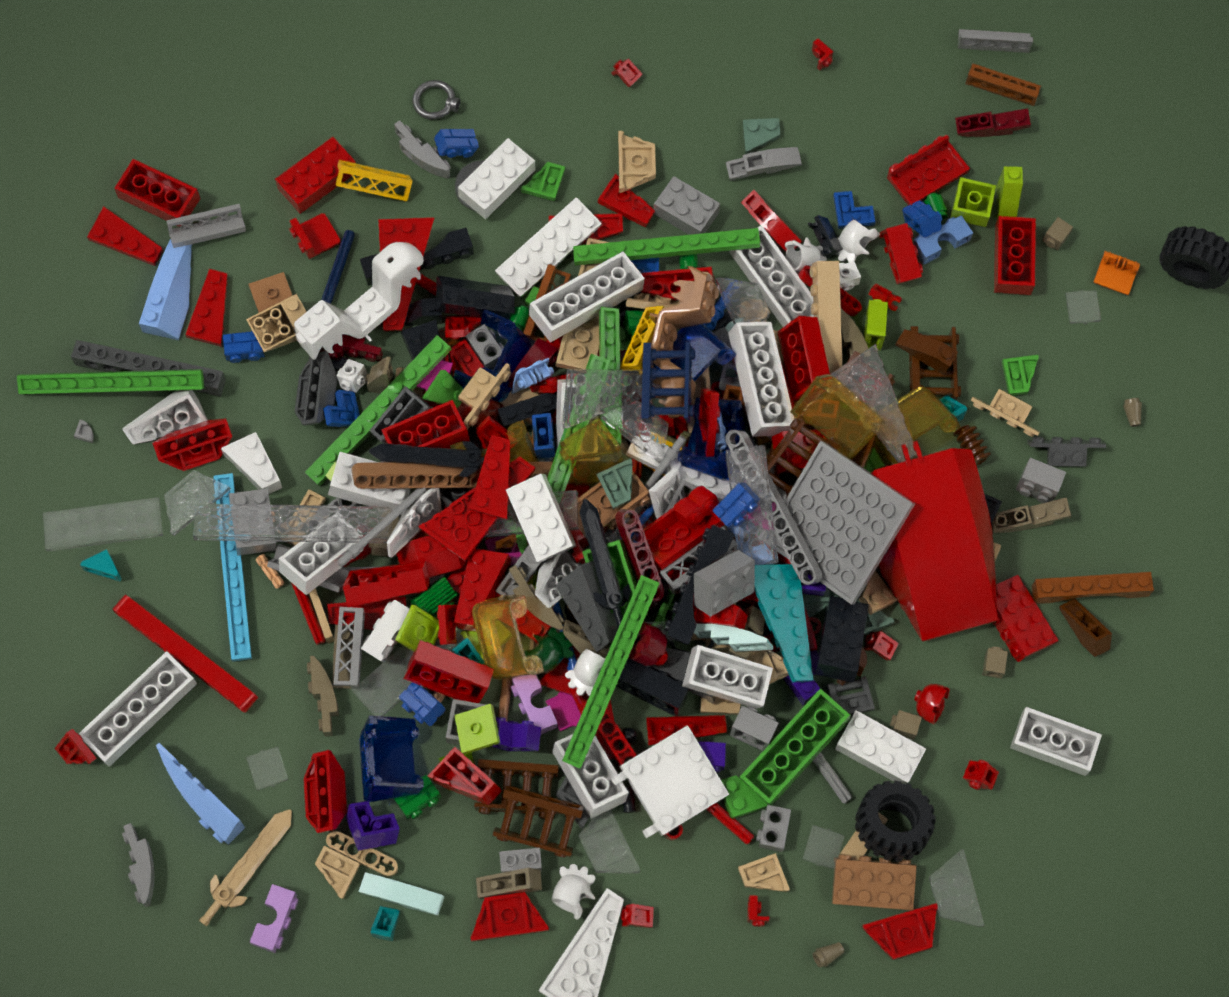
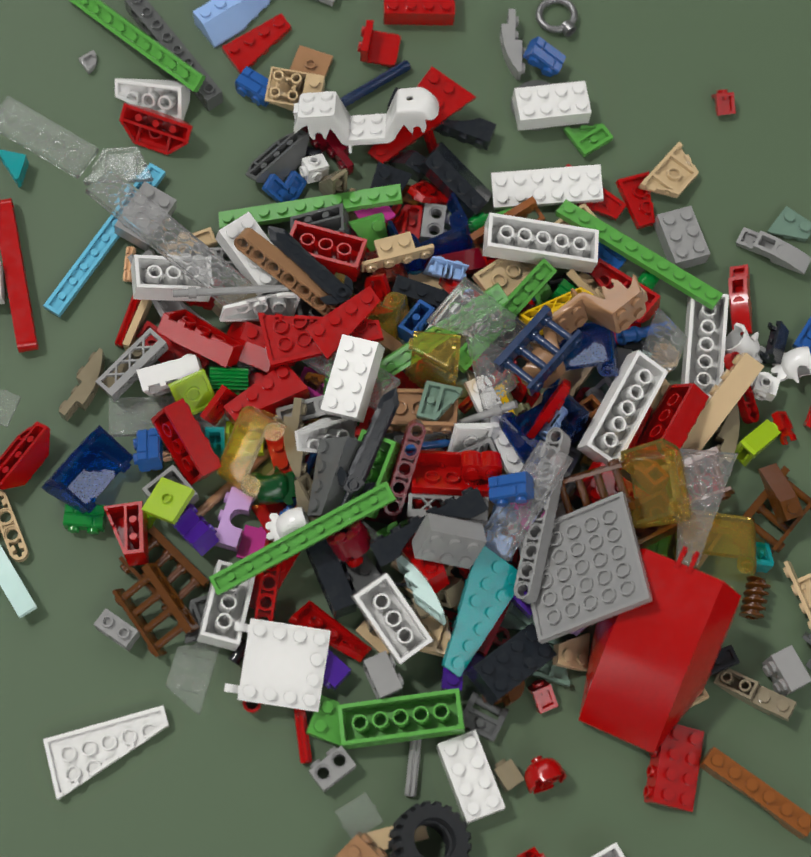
camera: 35 degrees right, 0 degrees up
(253, 462) = (188, 175): white wedge -> none
(370, 830) = (27, 513): dark purple brick -> none
(376, 174) = (459, 32): yellow fence -> none
(507, 917) = (71, 664): red wing -> none
(509, 882) = (95, 639): dark tan slope -> none
(572, 888) = (137, 683): white piece -> none
(630, 734) = (284, 603): black hinge -> none
(637, 916) = (167, 746): red bracket -> none
(754, 908) = (262, 818): red bracket -> none
(764, 874) = (293, 798): tan wing -> none
(995, 662) = (624, 786): dark tan brick -> none
(1087, 628) = (724, 821): reddish brown slope -> none

